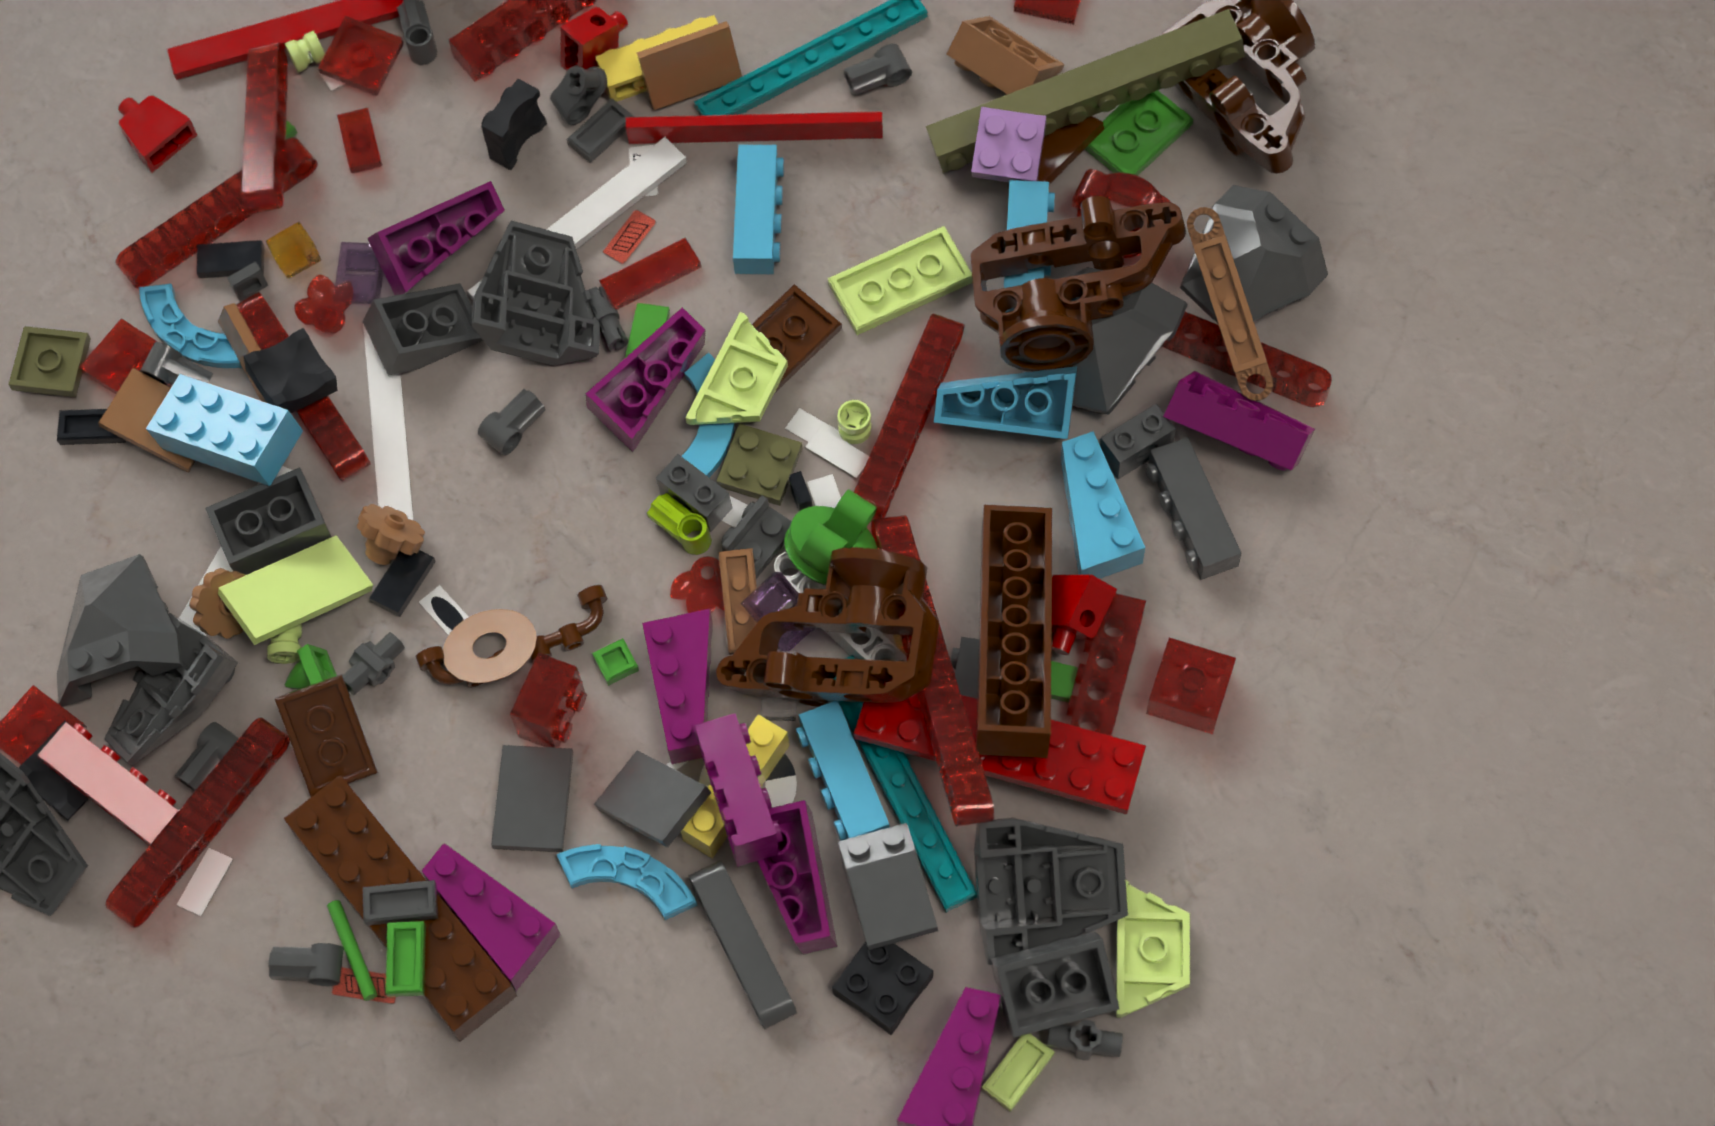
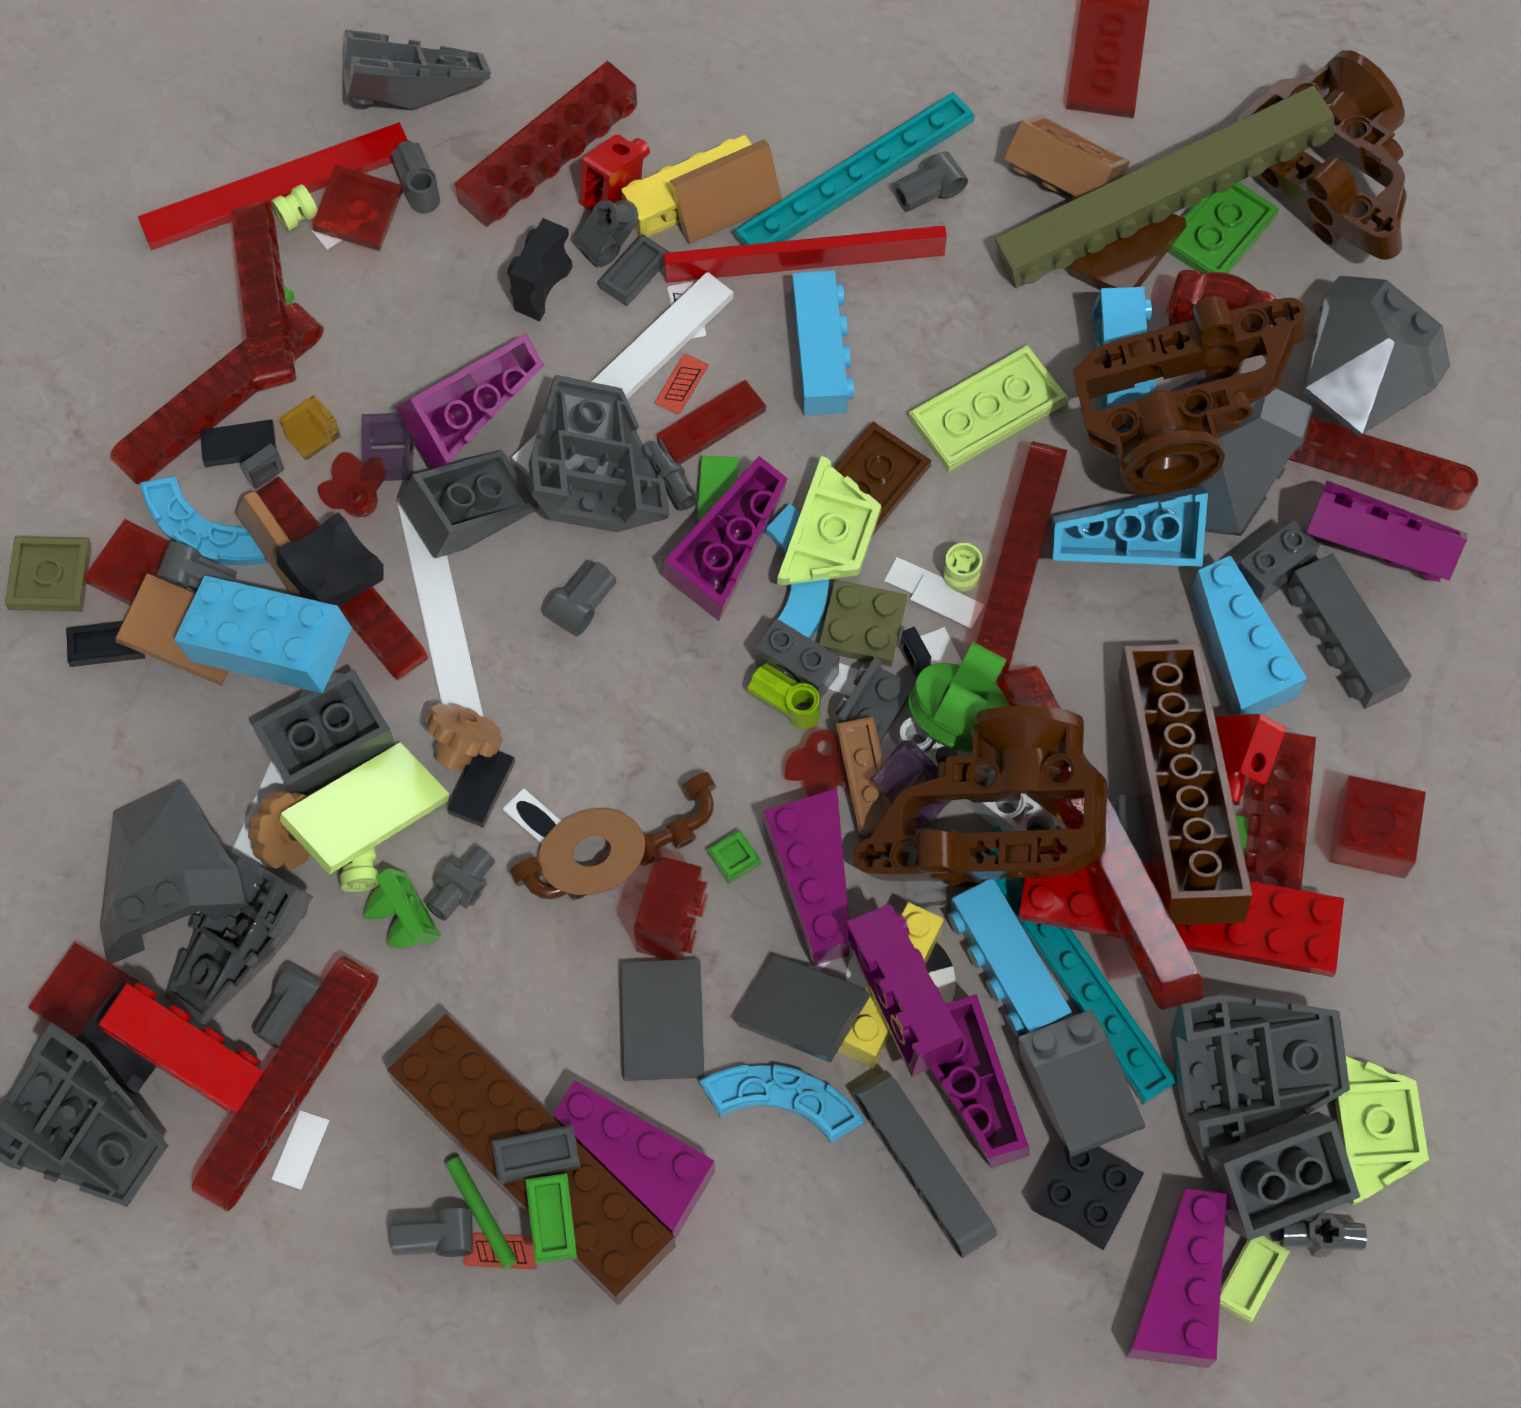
camera: 10 degrees left, 0 degrees up
(154, 130) = (135, 306): red torso -> none
(326, 733) = (421, 968): reddish brown tile -> none
(359, 140) = (367, 301): clear red plate -> none
(1008, 145) = (1093, 251): lavender brick -> none
(1229, 303) = (1362, 403): medium nougat plate -> none

